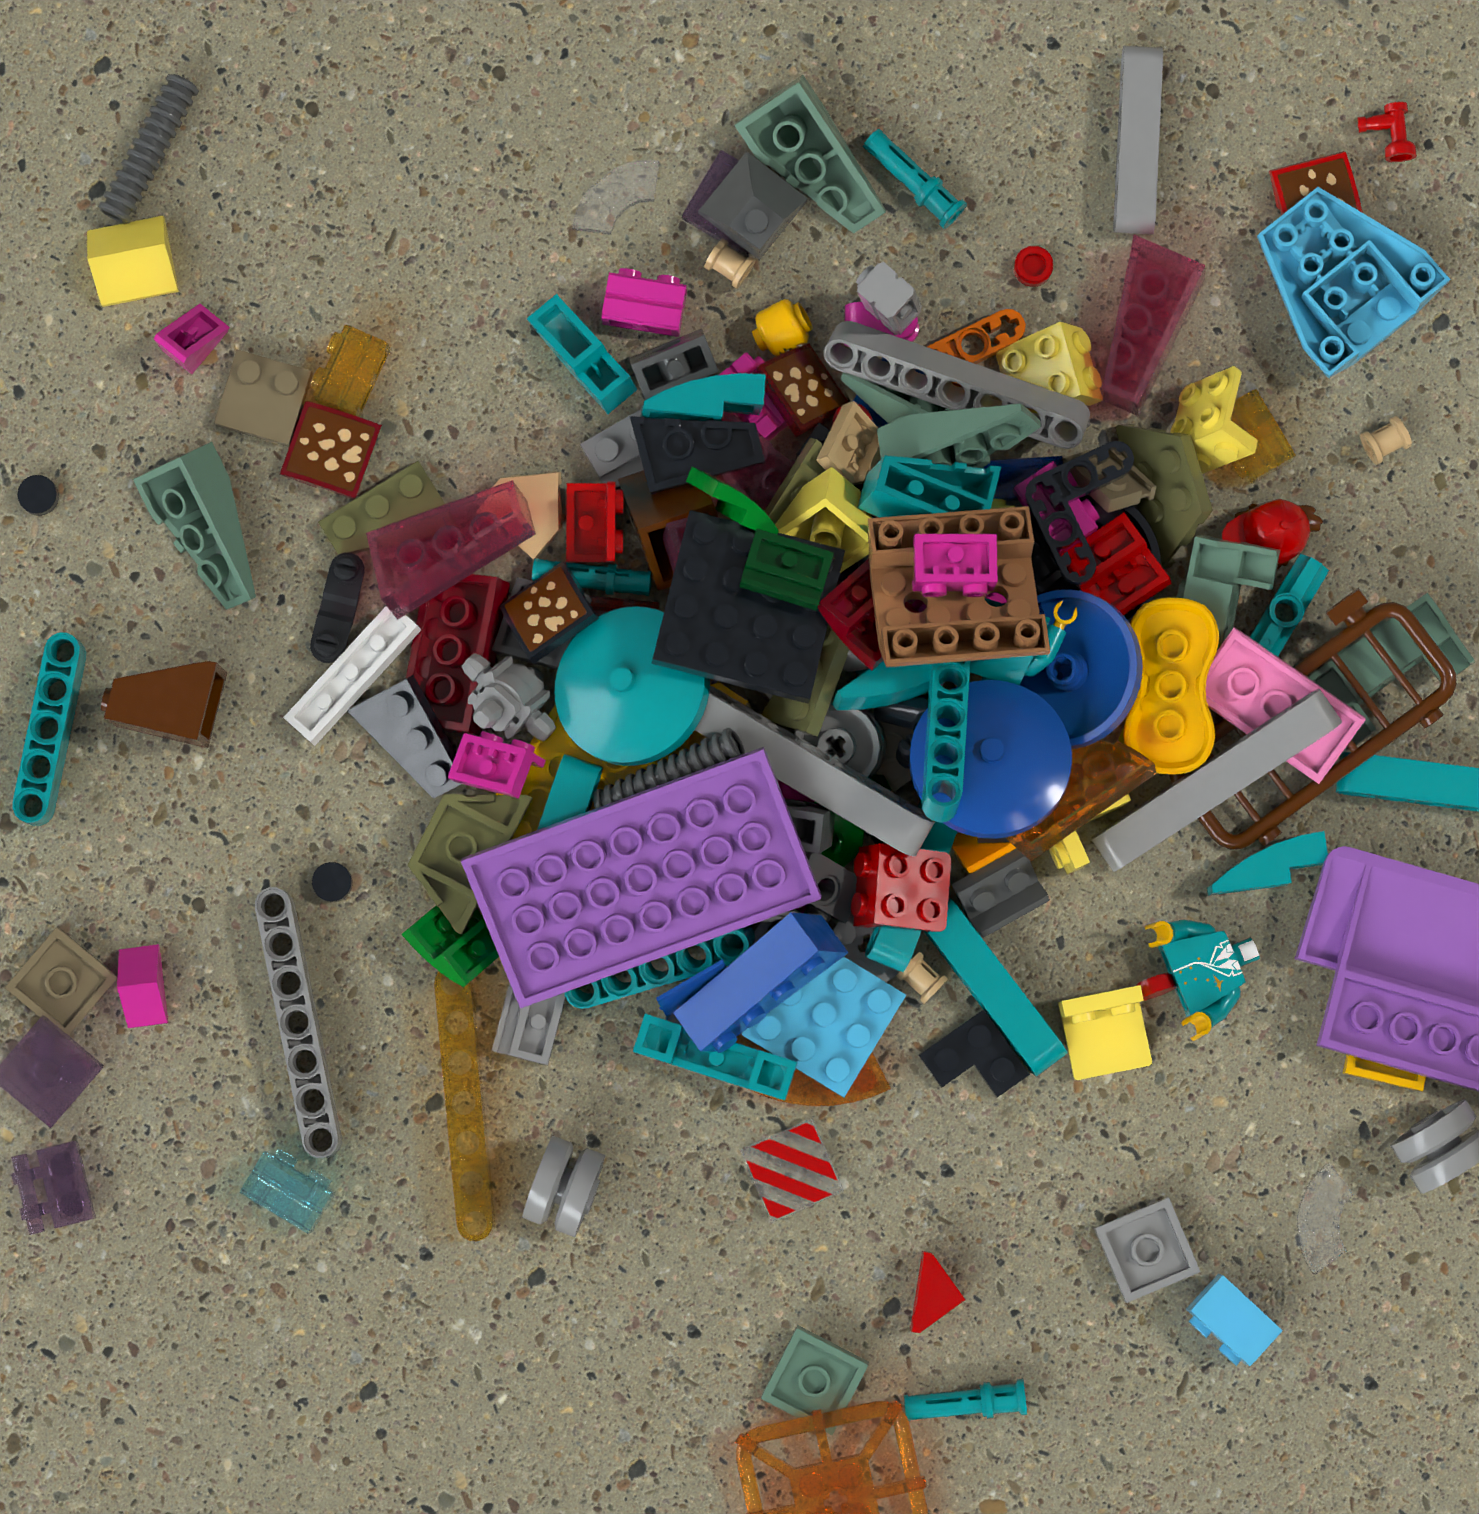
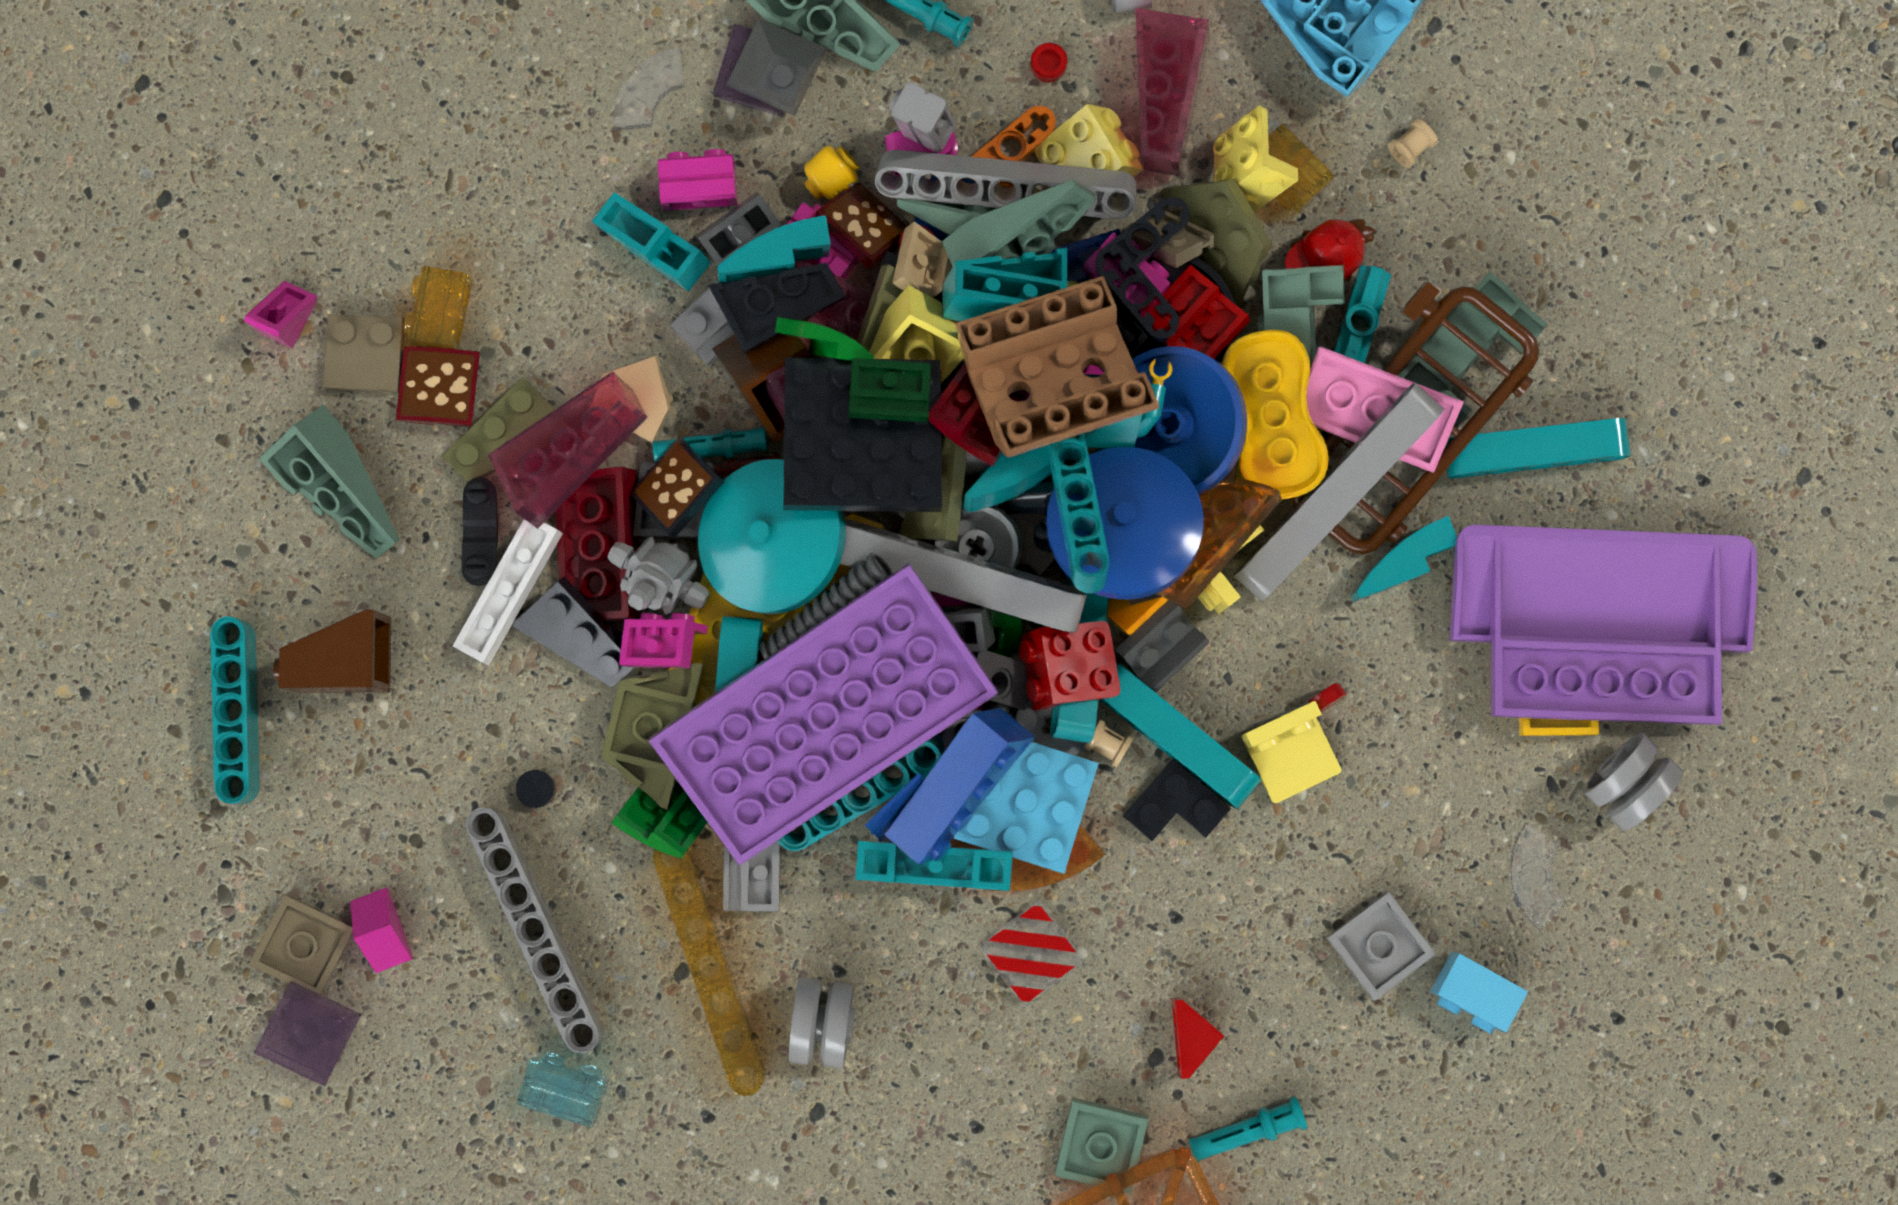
camera: 15 degrees left, 0 degrees up
(38, 495) = (174, 494): black tile -> none
(64, 1184) = (350, 1137): clear purple plate -> none
(131, 261) = (210, 257): light yellow slope -> none
(148, 148) = (201, 148): dark grey piece -> none
(592, 522) = (697, 394): red bracket -> none
(729, 263) = (767, 125): tan bush -> none
(955, 564) = (1048, 345): dark pink bracket -> none
(1203, 969) = (1368, 671): teal torso -> none

